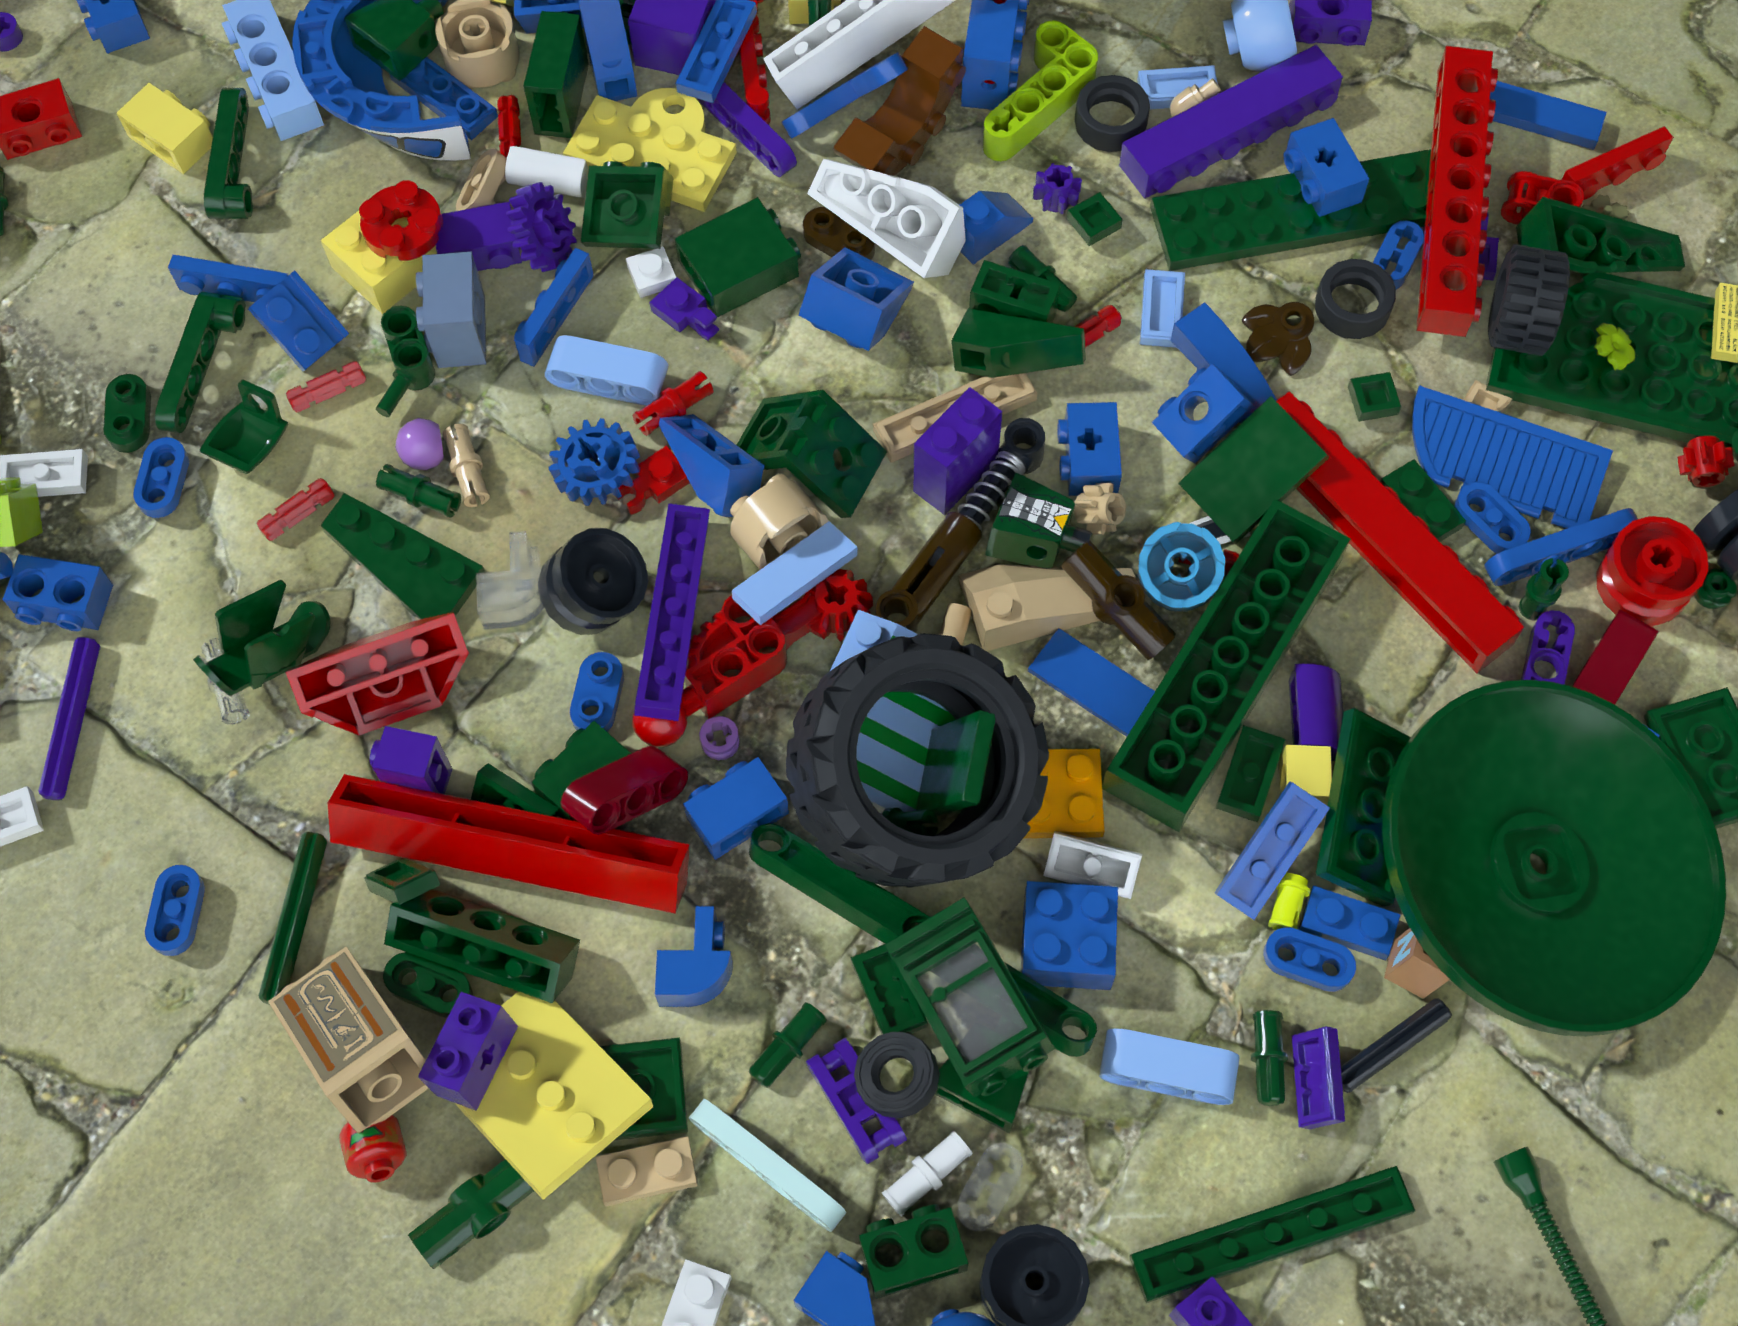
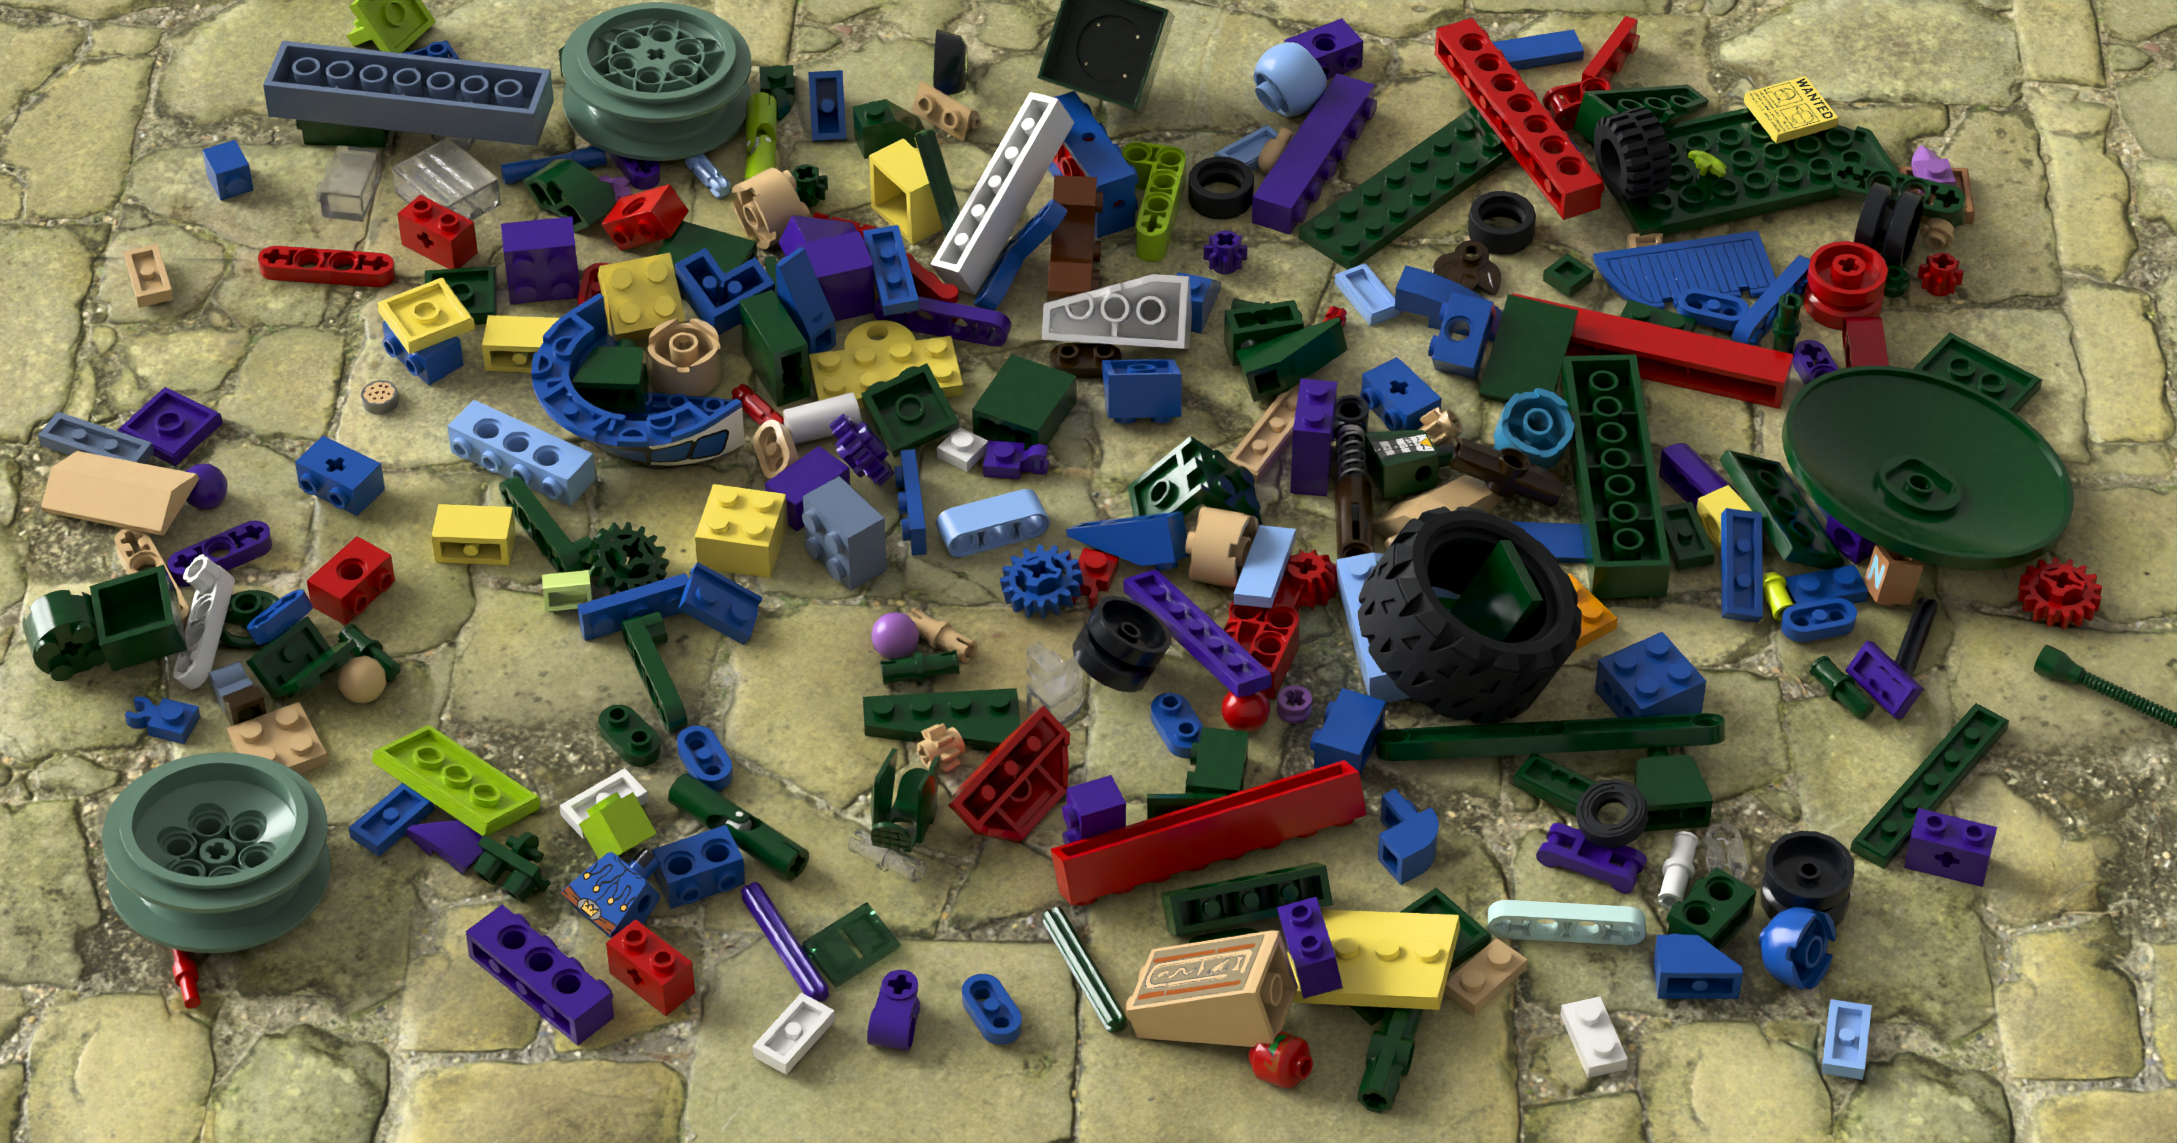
camera: 35 degrees left, 20 degrees down
(86, 863) = (895, 1012): none -> dark purple piece
(123, 544) = (748, 832): none -> dark green piece
(142, 756) = (834, 954): none -> clear green piece
(194, 232) = (566, 590): none -> yellowish green piece
(247, 431) = (749, 698): dark green piece -> none
(271, 219) = (609, 554): none -> dark green gear
(295, 509) = (831, 727): red axle -> none
(326, 386) = (777, 640): red axle -> none
(358, 593) = (941, 743): none -> tan gear
(398, 202) = (752, 472): red plate -> none
(401, 880) = (1154, 890): dark green tile -> none
(404, 350) = (821, 577): dark green beam -> none
(624, 789) = (1265, 754): dark red beam -> none
(673, 402) = (1063, 517): red pin -> none
(787, 1045) = (1515, 850): dark green axle -> none
(970, 999) = (1625, 736): dark green door -> none
(1092, 863) = (1616, 635): white brick -> none
(1094, 219) = (1269, 259): dark green plate -> none
(1169, 1066) = (1782, 725): light blue beam -> none
(1325, 167) = (1415, 145): blue brick -> none
(1403, 258) = (1513, 179): blue beam -> none
(1607, 1103) = (2059, 593): none -> red gear
(1706, 461) = (1824, 206): red gear -> none

